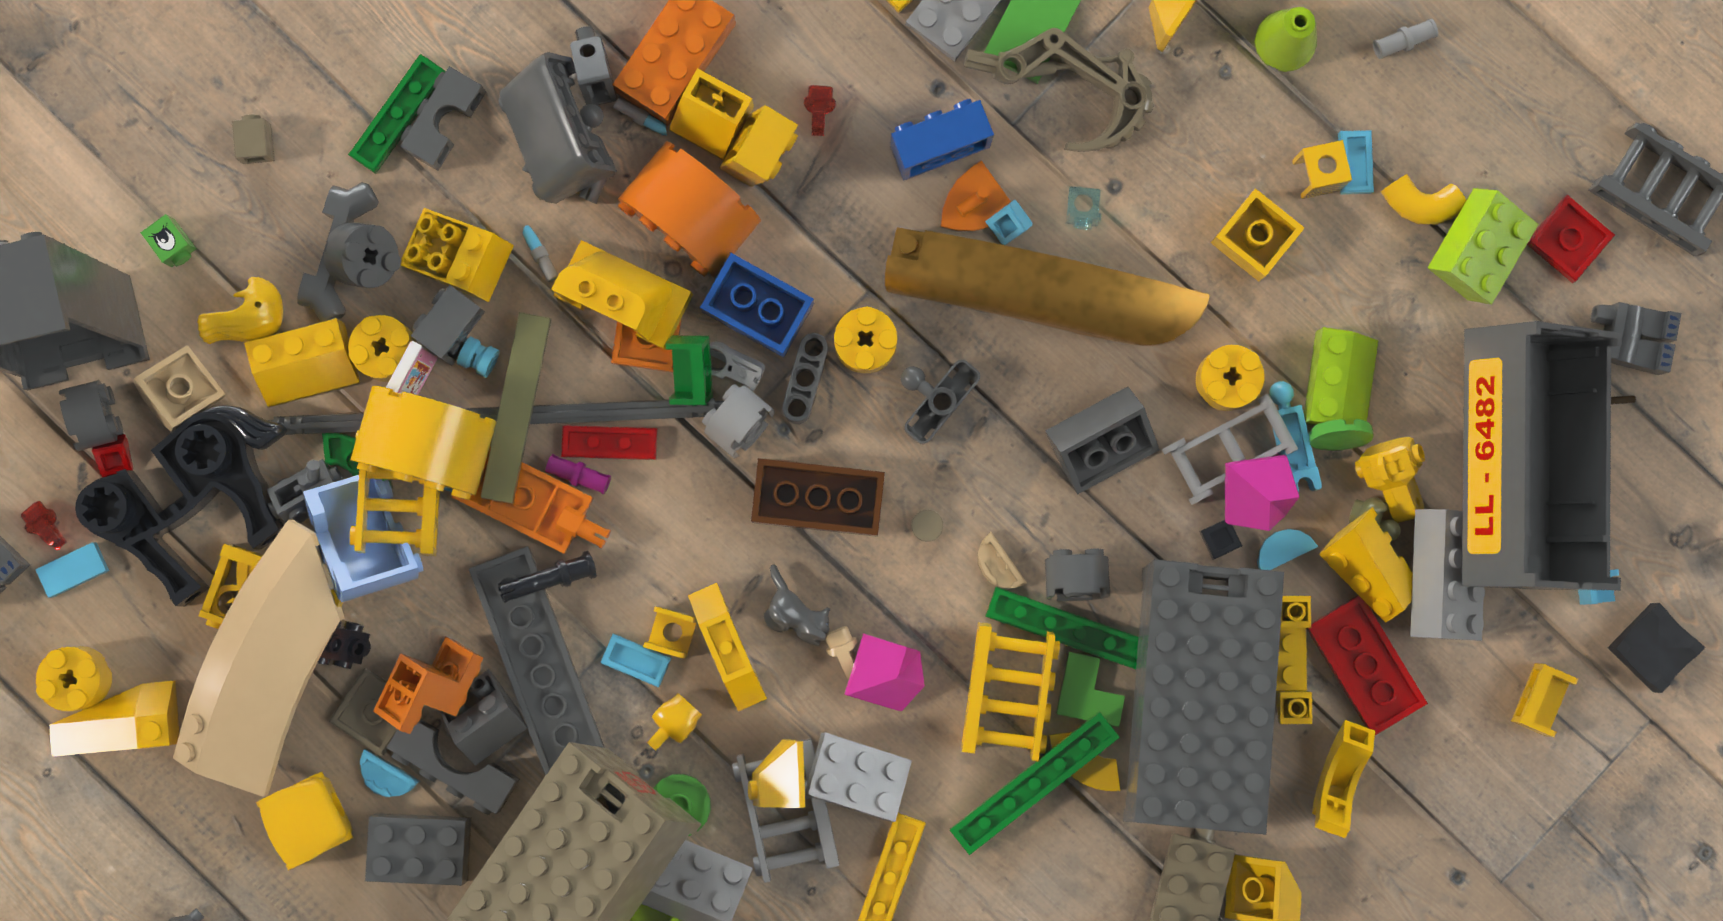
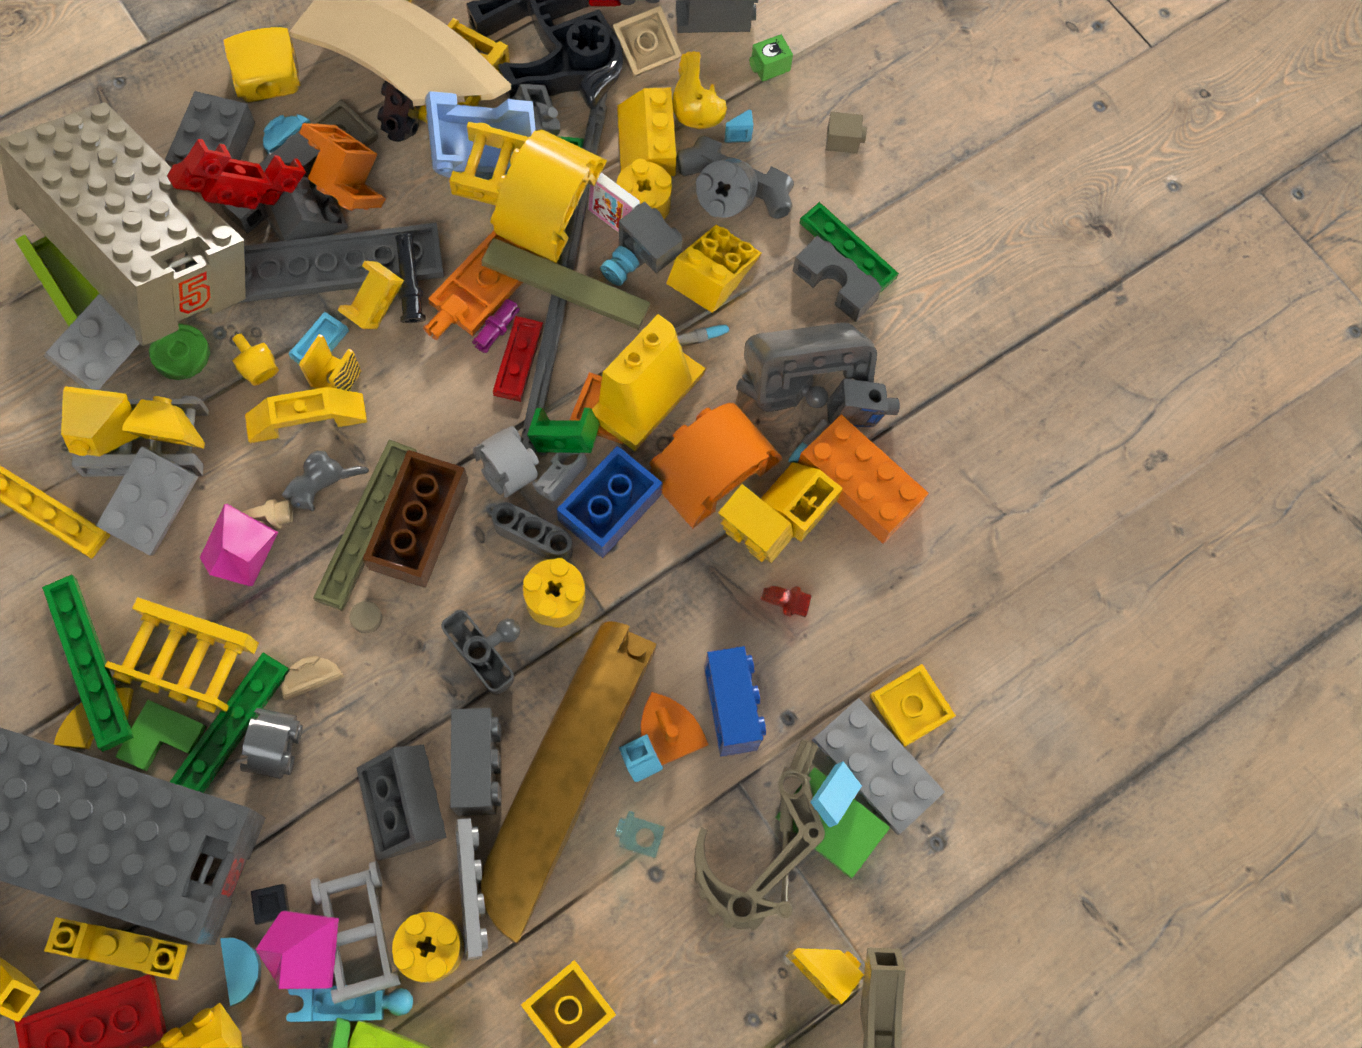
camera: 100 degrees right, 15 degrees down
(273, 257) = (739, 128): none -> medium azure slope
(489, 777) = (233, 180): none -> red bracket
(577, 613) = (373, 297): none -> yellow panel
(793, 848) = (94, 421): none -> yellow slope
(829, 553) = (348, 558): none -> olive tile
(1010, 24) = (836, 794): none -> medium azure tile
(1054, 373) = (475, 762): none -> dark grey brick
(1162, 353) = (471, 903): none -> light grey plate

